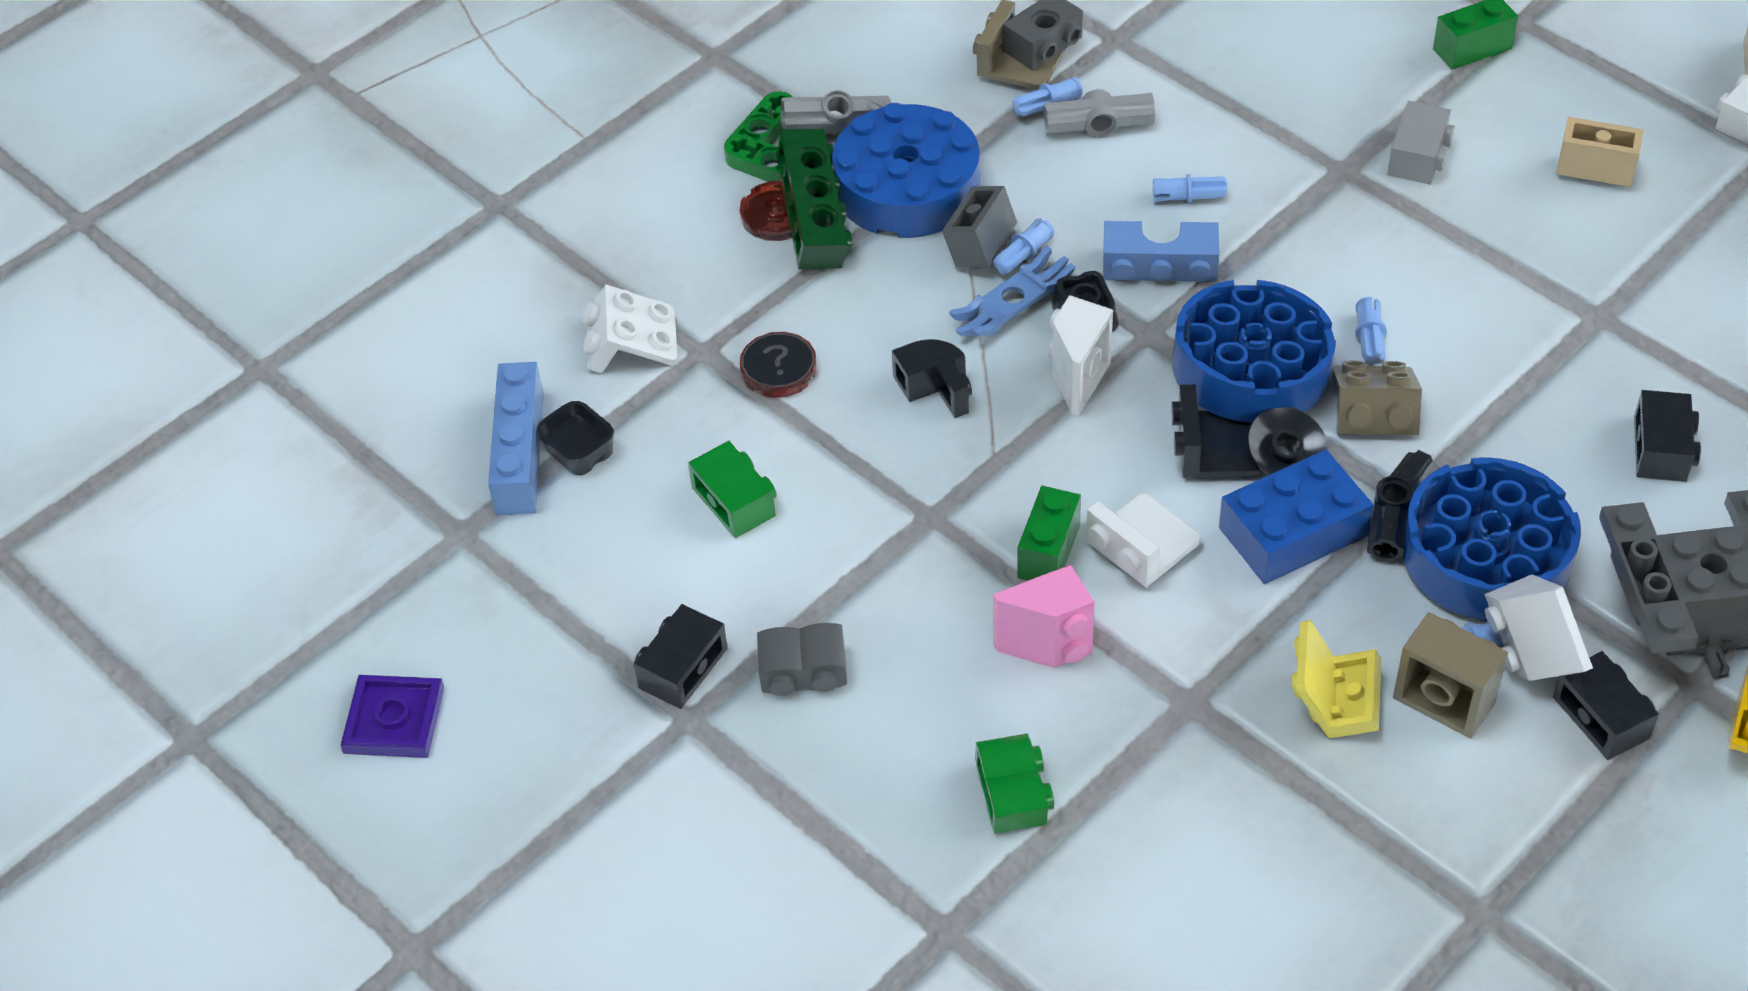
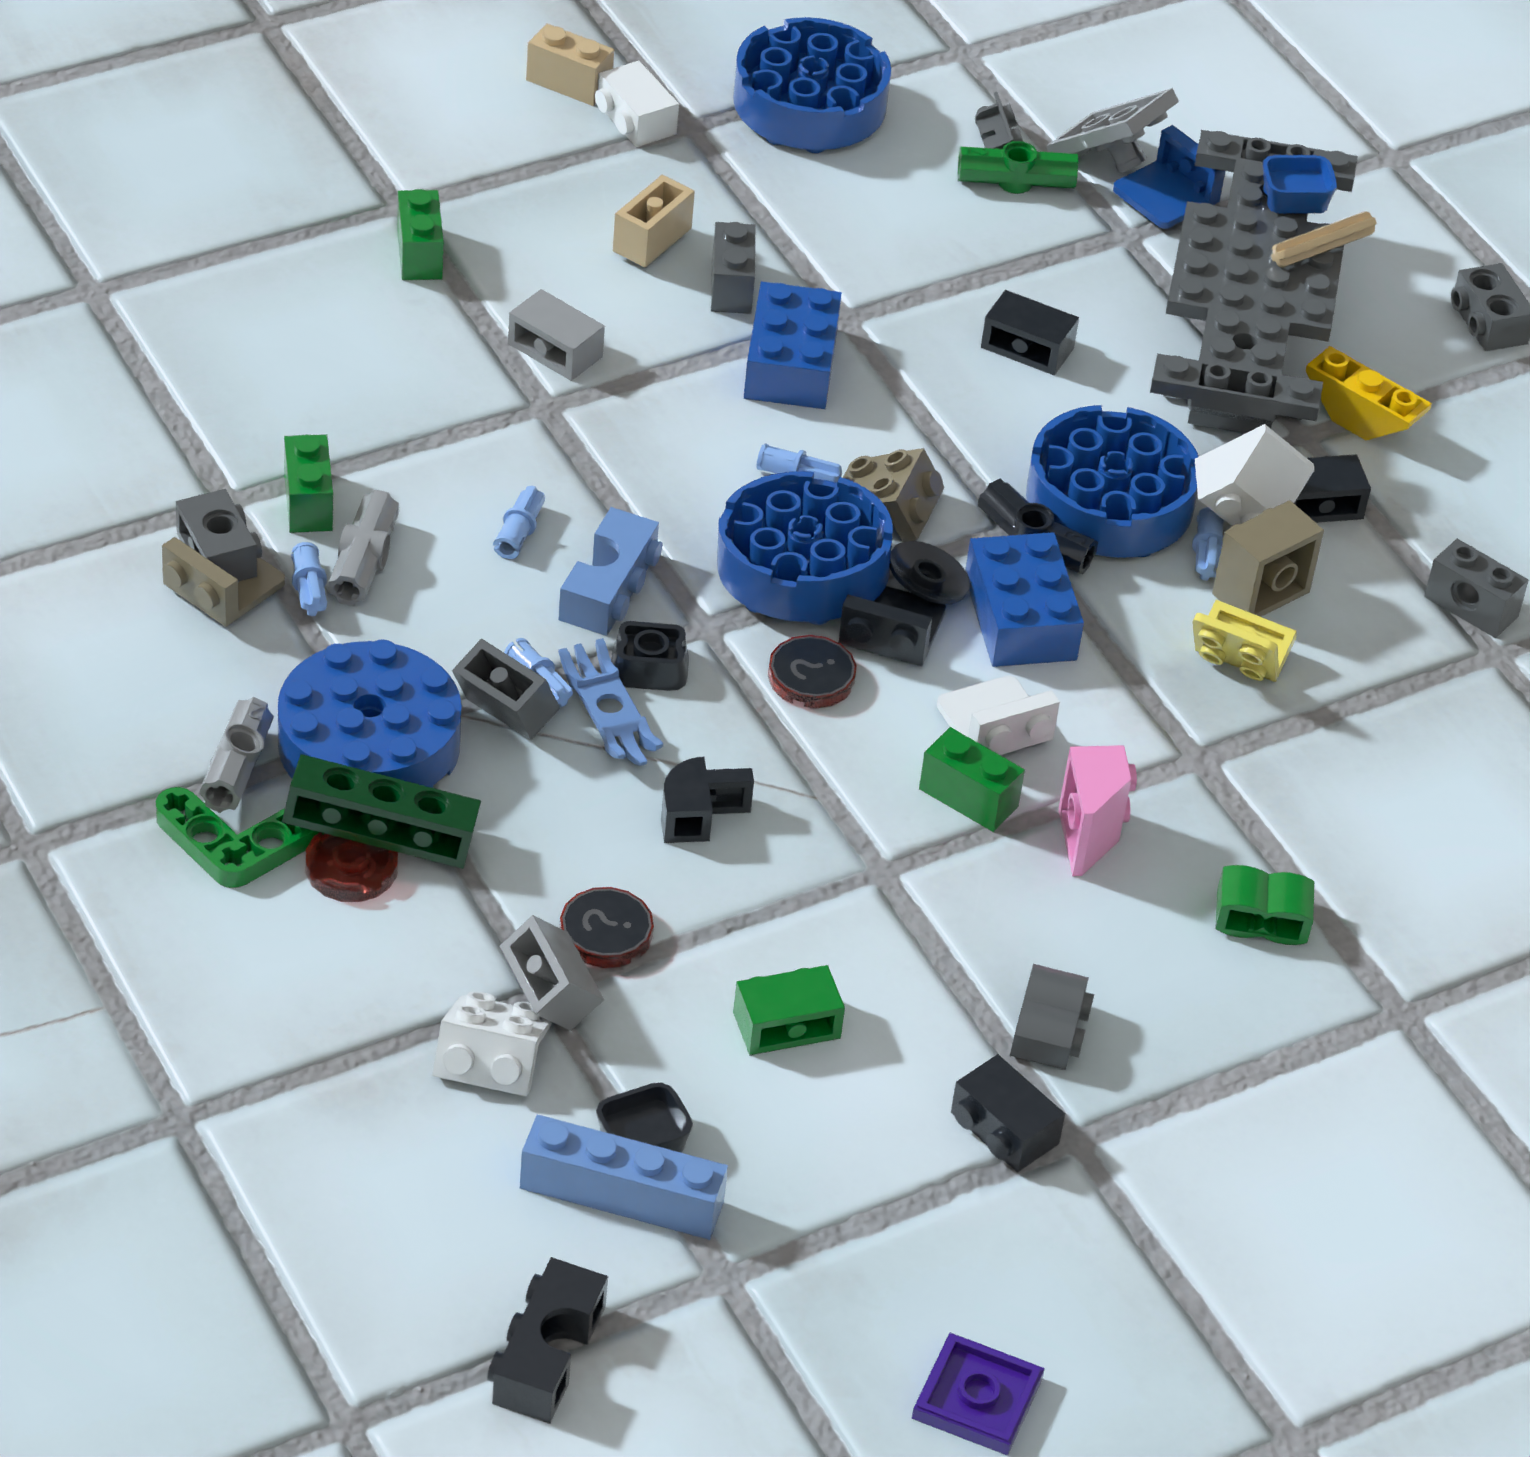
camera: 80 degrees left, 5 degrees down
(321, 437) = (561, 1305): none -> black arch
(696, 338) = (551, 973): none -> light grey brick
(1080, 349) = (747, 670): white slope -> none
(1131, 408) = (812, 671): none -> black tile
(1144, 61) = (308, 483): none -> green brick
(1516, 282) = (792, 345): none -> blue brick
(1545, 864) = (1476, 588): none -> dark grey brick
(1586, 218) = (733, 267): none -> dark grey brick

